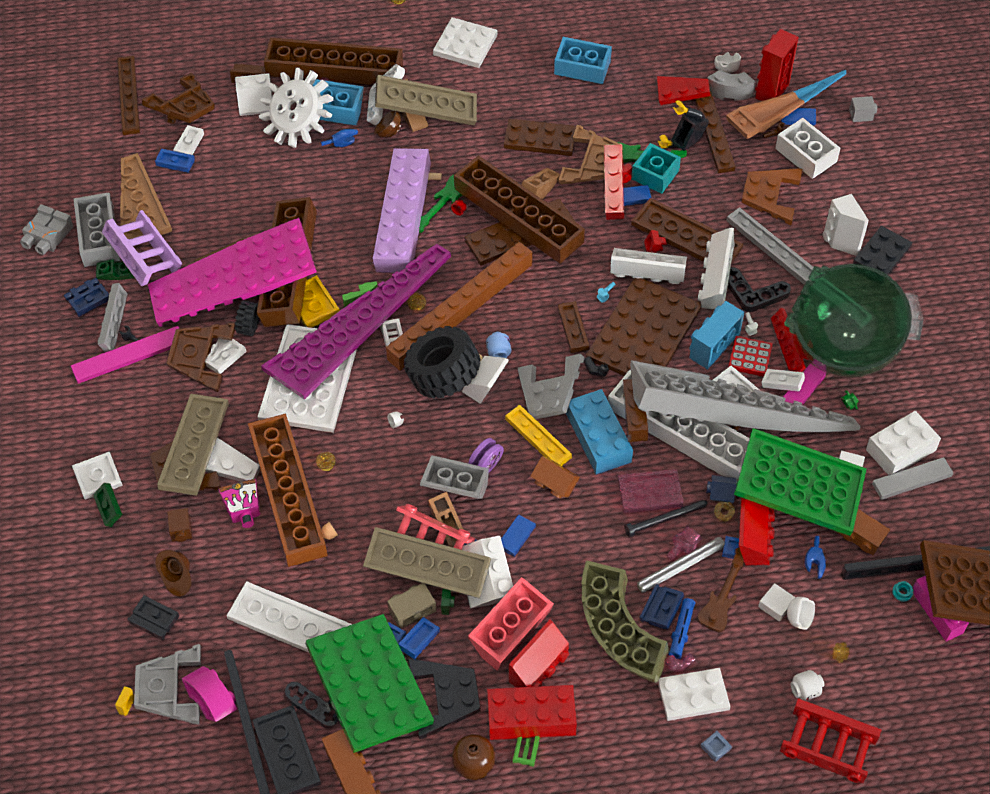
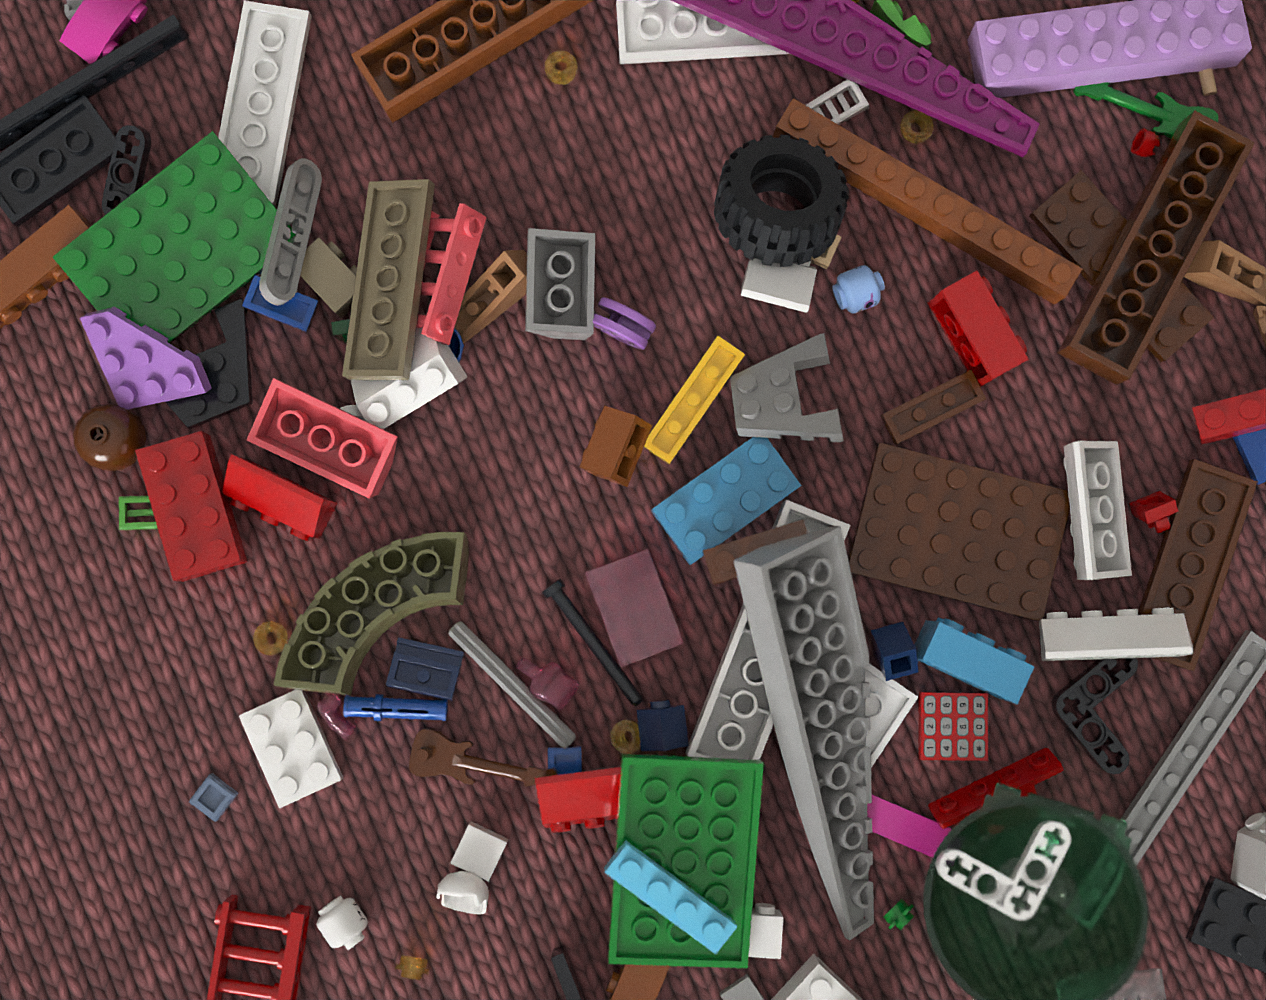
camera: 70 degrees right, 30 degrees up
(328, 531) = (433, 112): light nougat hinge -> none
(367, 610) = (285, 258): none -> light grey piece
(395, 419) = (669, 157): white hinge -> none
(434, 715) = (141, 361): none -> medium lavender plate
(517, 535) = (500, 409): blue tile -> none
(537, 293) = (978, 328): none -> red brick
(600, 371) = (854, 464): black arm -> none
(603, 293) = (1018, 441): medium azure hand -> none
(623, 684) = (260, 638): none -> clear yellow plate
(705, 365) = (894, 651): none -> dark blue brick
(751, 329) = (1014, 720): white hand -> none
(783, 380) = (910, 793): white plate -> none
(815, 555) = (580, 898): blue hand -> none
(819, 489) = (670, 897): none -> medium azure plate
(837, 323) = (1006, 886): none -> white beam

